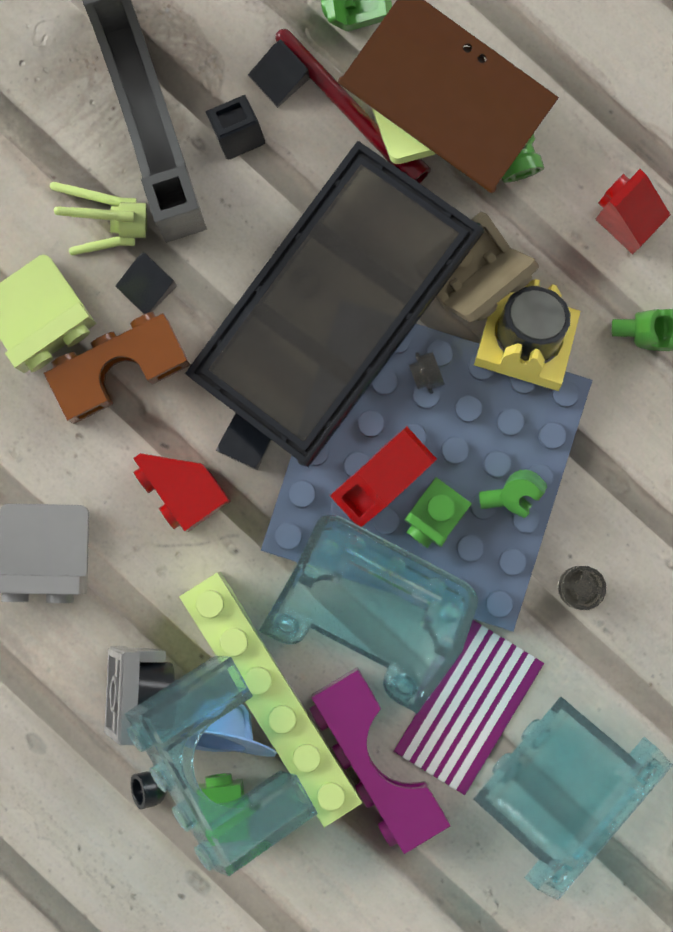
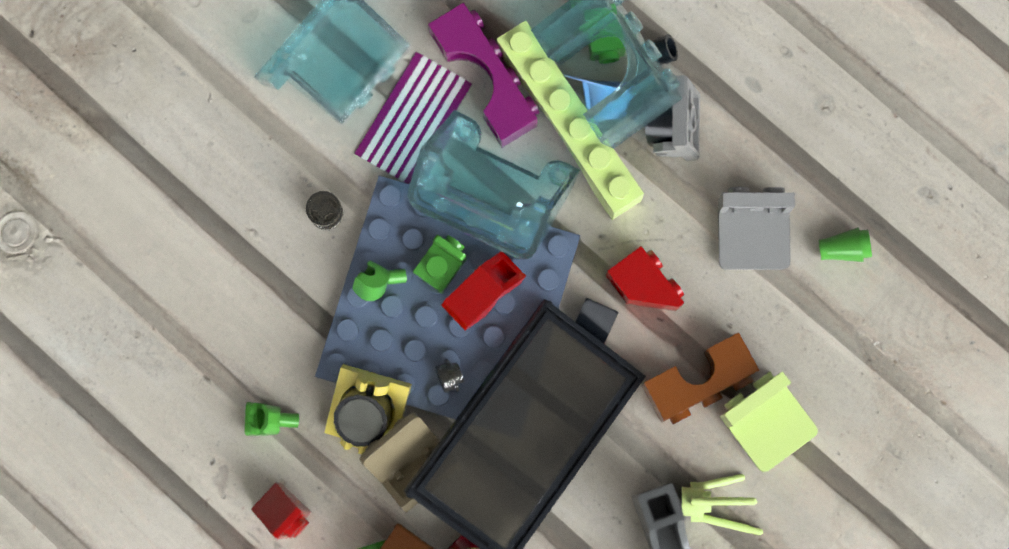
camera: 175 degrees left, 5 degrees down
(145, 284) = (680, 449): black slope -> none

